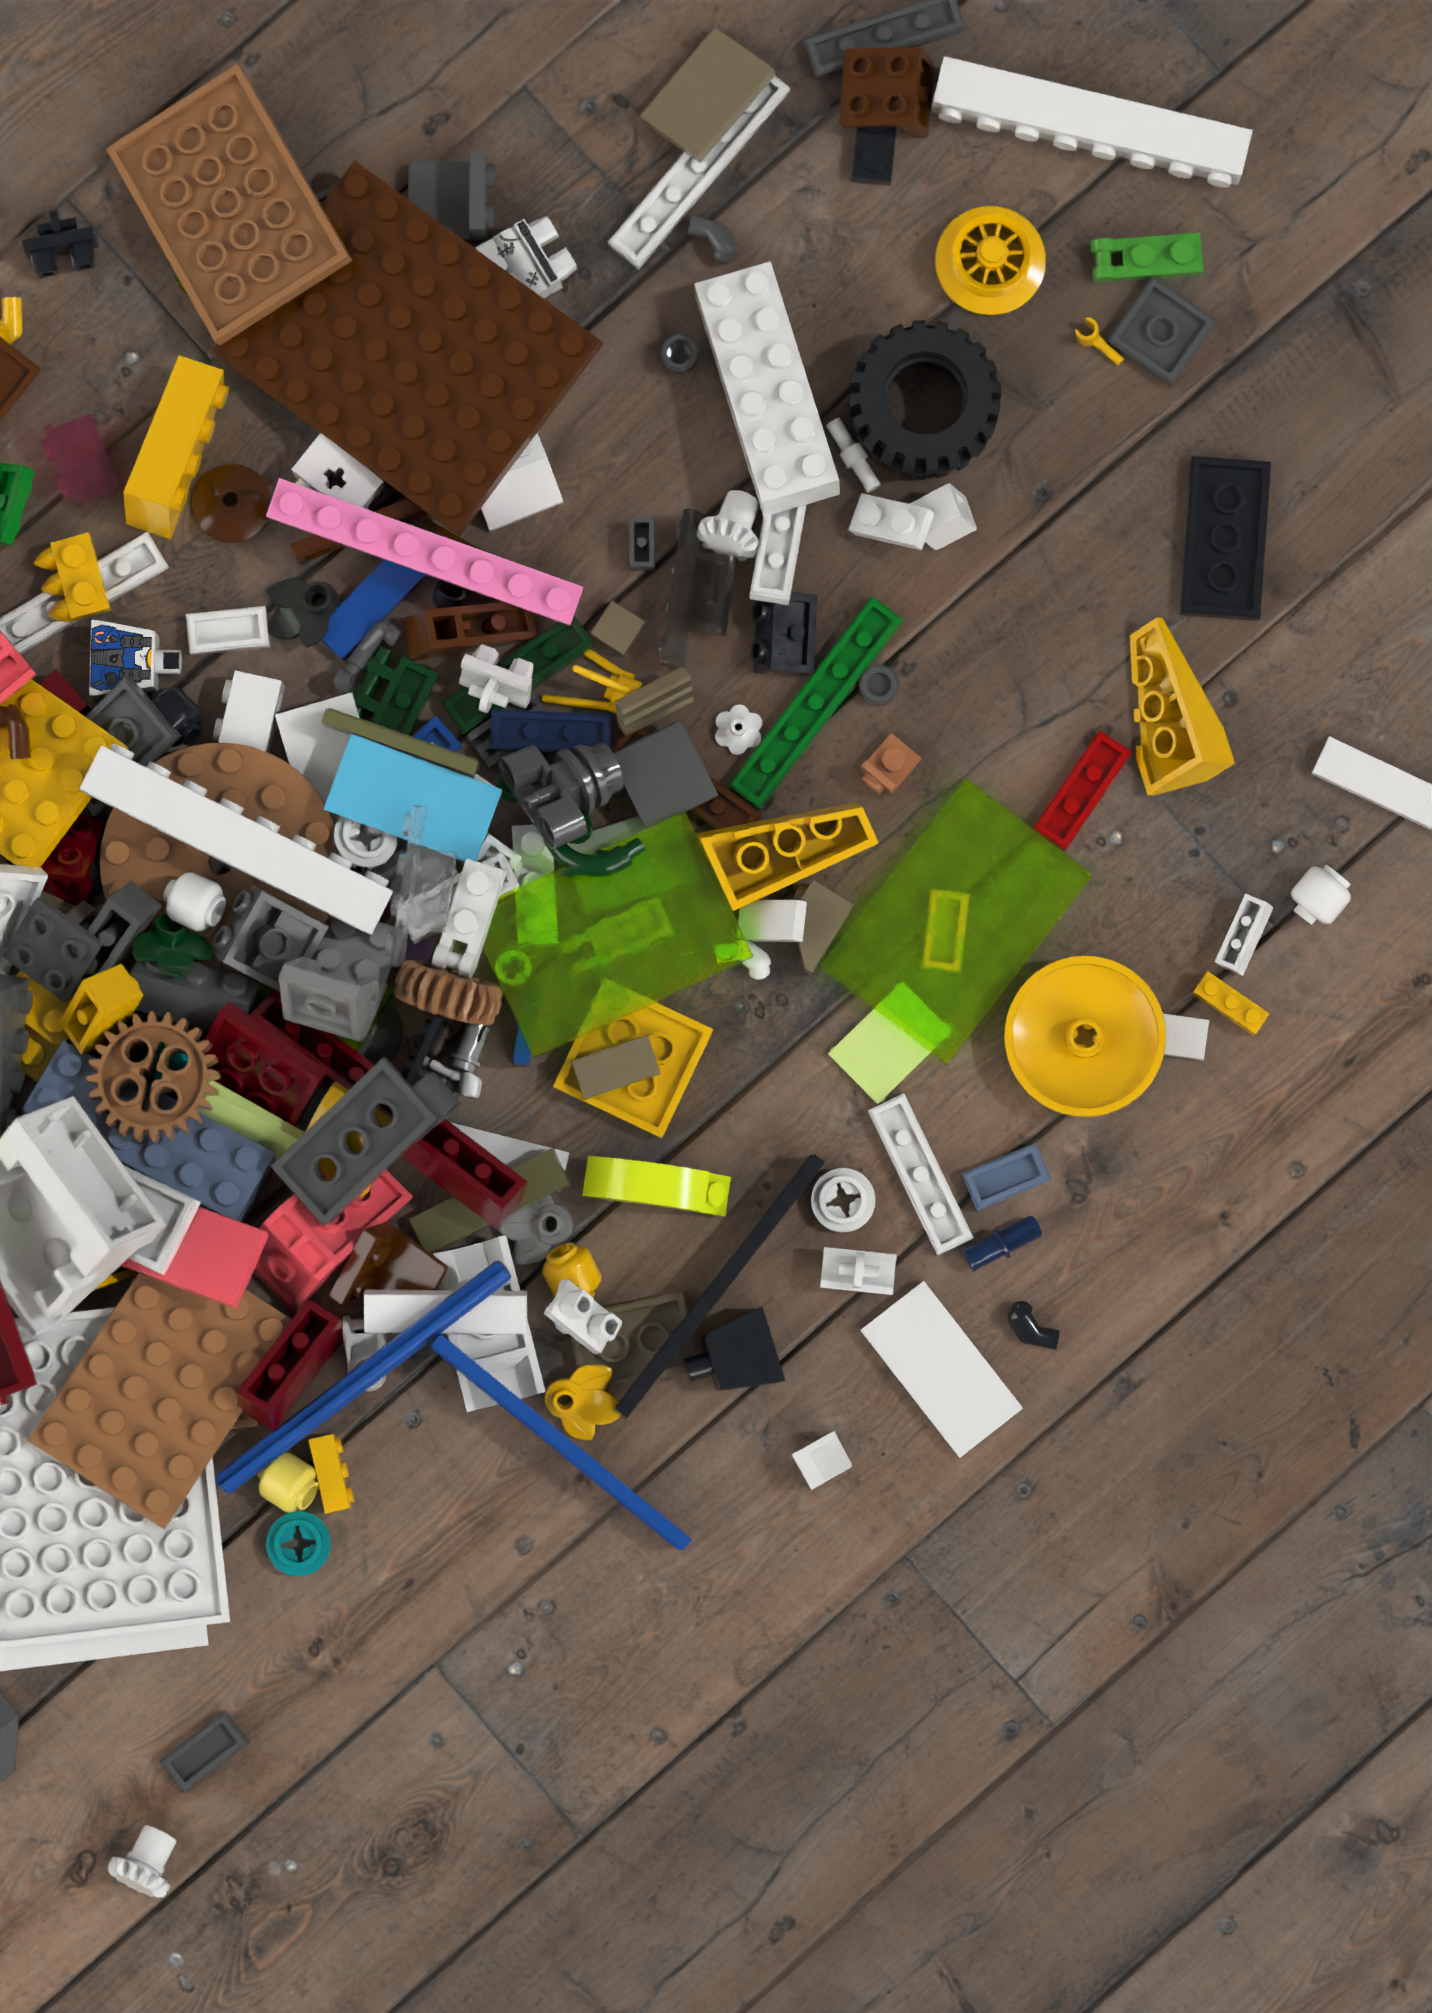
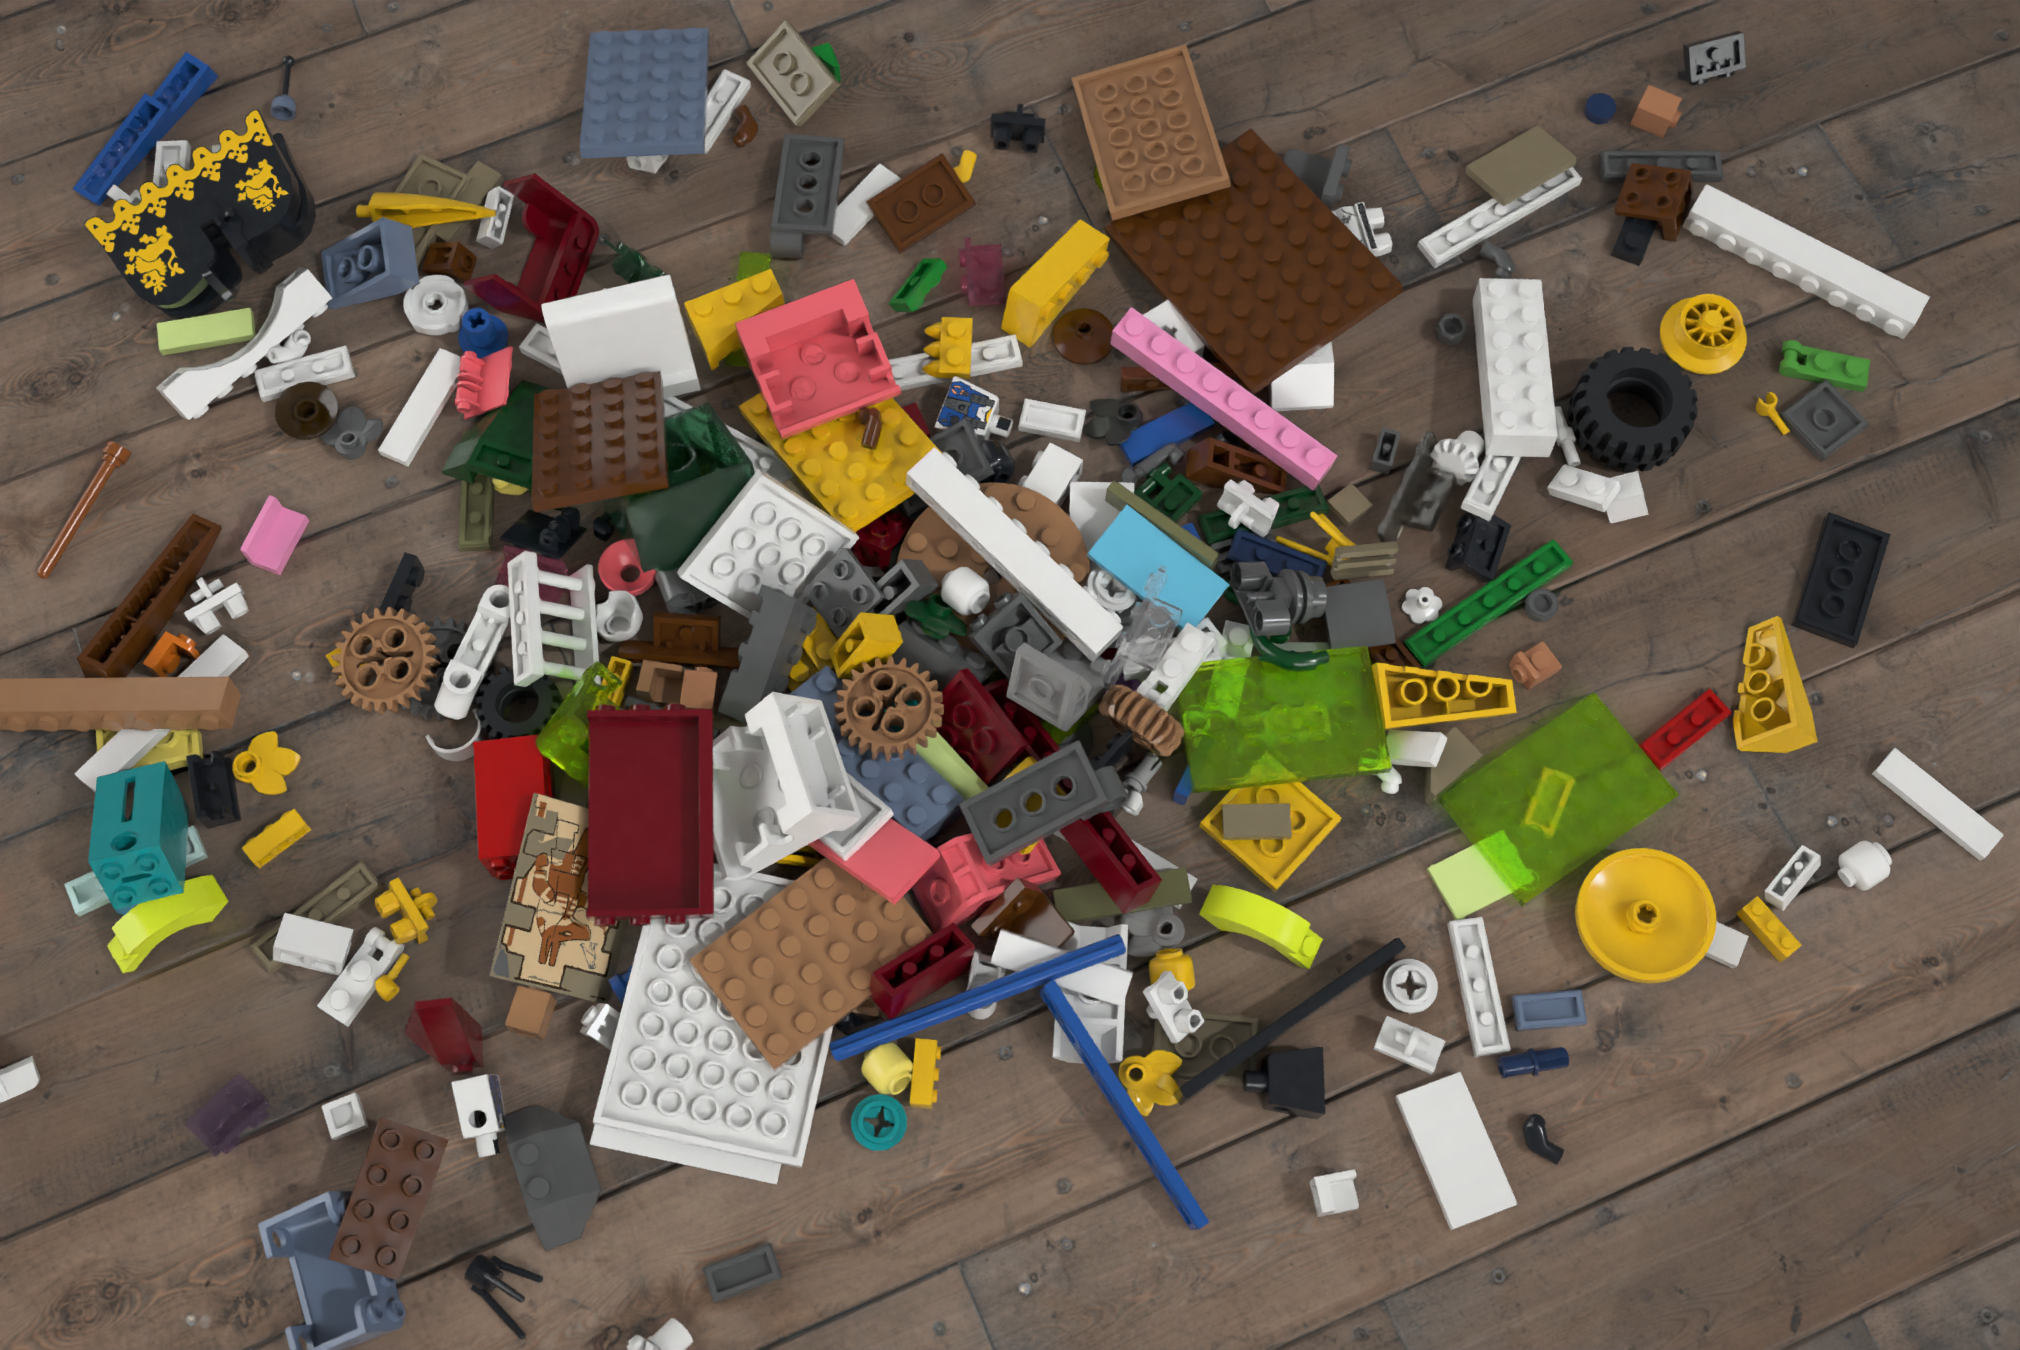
camera: 15 degrees right, 15 degrees down
(236, 1443) = (853, 1023): none -> black arm

